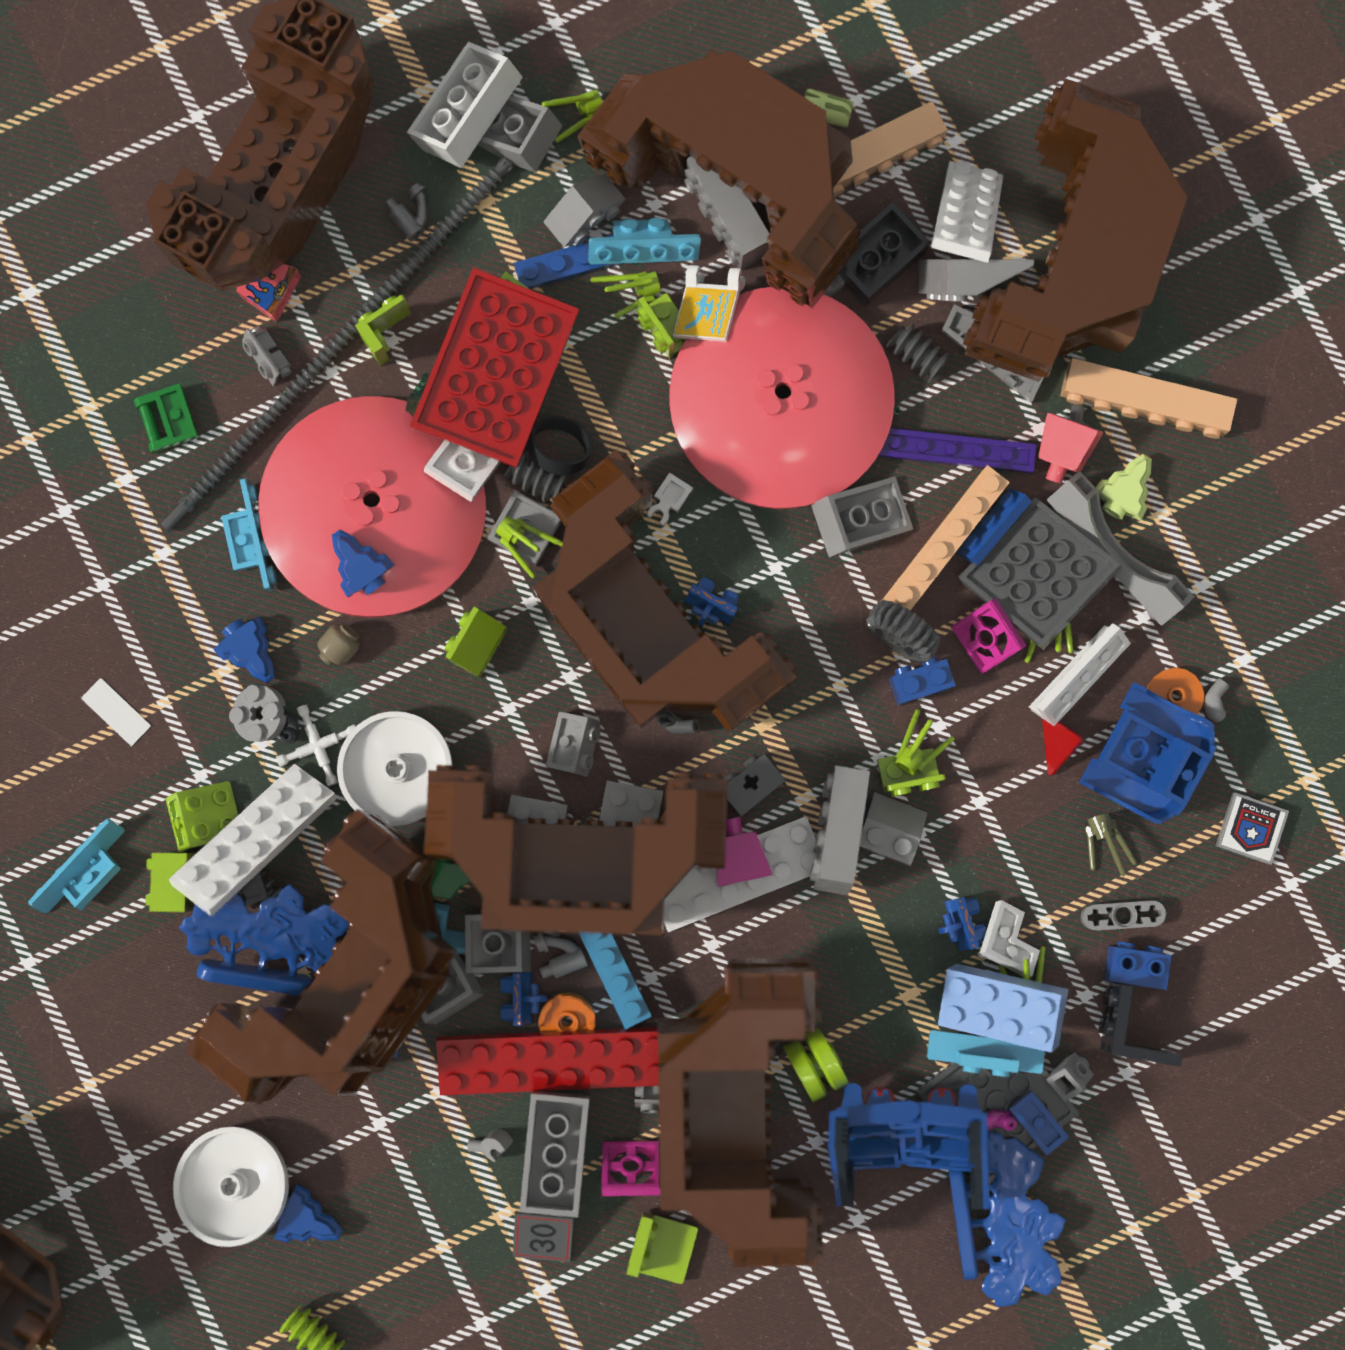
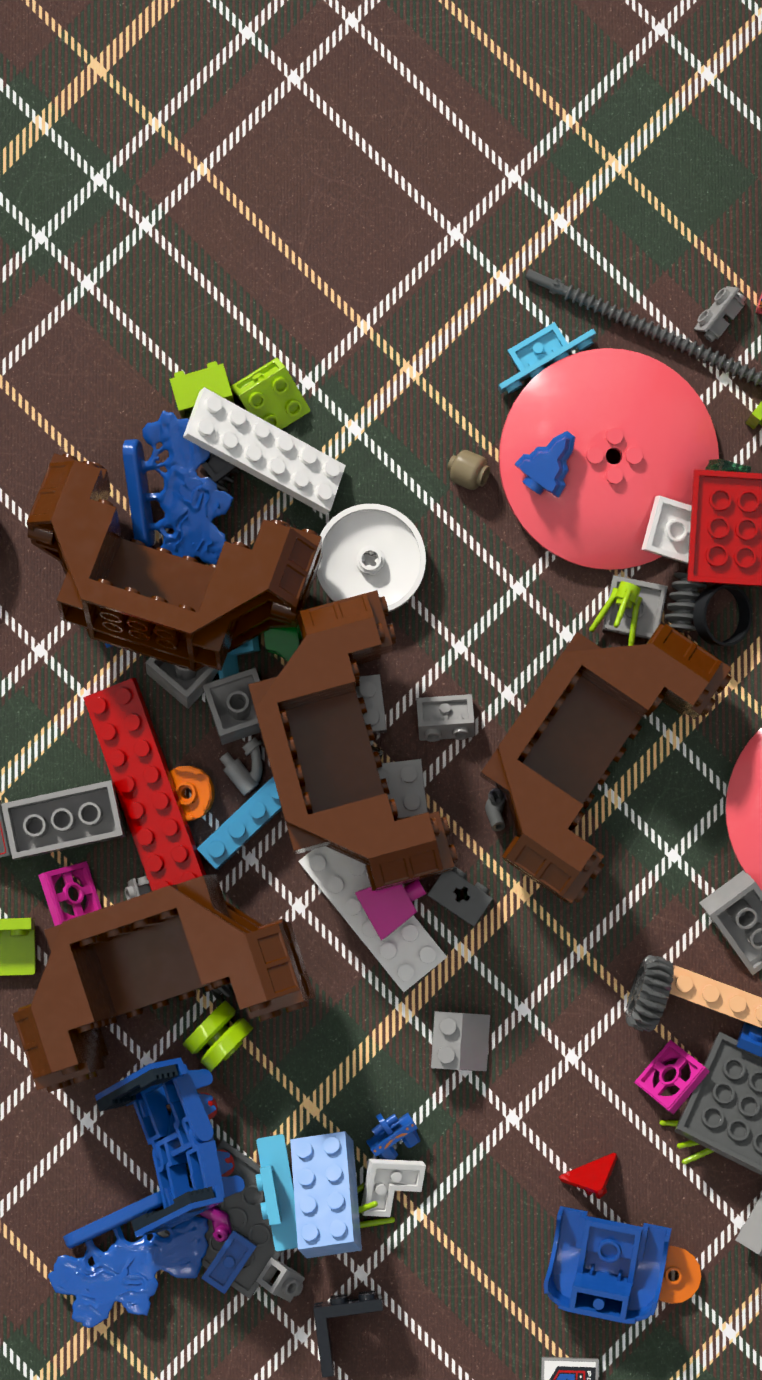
camera: 75 degrees right, 0 degrees up
(83, 872) = (185, 306): medium azure bracket -> none
(116, 712) = (341, 285): white sticker -> none
(174, 414) = (634, 248): green plate -> none
(244, 711) = (381, 403): light grey plate -> none
(247, 648) = (439, 387): blue rock -> none
(291, 729) = (381, 447): black arm -> none
(317, 746) = (368, 480): white piece -> none
(475, 642) = (511, 595): lime slope -> none
(493, 1144) = (52, 760): light grey piece -> none
(525, 998) = (194, 747): blue hips -> none
(671, 496) = (710, 735): white plate -> none
(709, 606) = (615, 805): blue hips -> none
(841, 831) = (437, 993): light grey brick -> none
(900, 782) = (520, 1042): lime bracket -> none
(911, 758) = (533, 1037): lime plant -> none
(921, 682) = (608, 1028): blue brick -> none
(1080, 674) = (663, 1176): white fence -> none
(1105, 827) = (524, 1241): olive plant -> none
(1137, 967) = (403, 1314): blue brick -> none
(1144, 921) = (433, 1269): light grey beam -> none
(1213, 703) = (679, 1312): light grey arm -> none

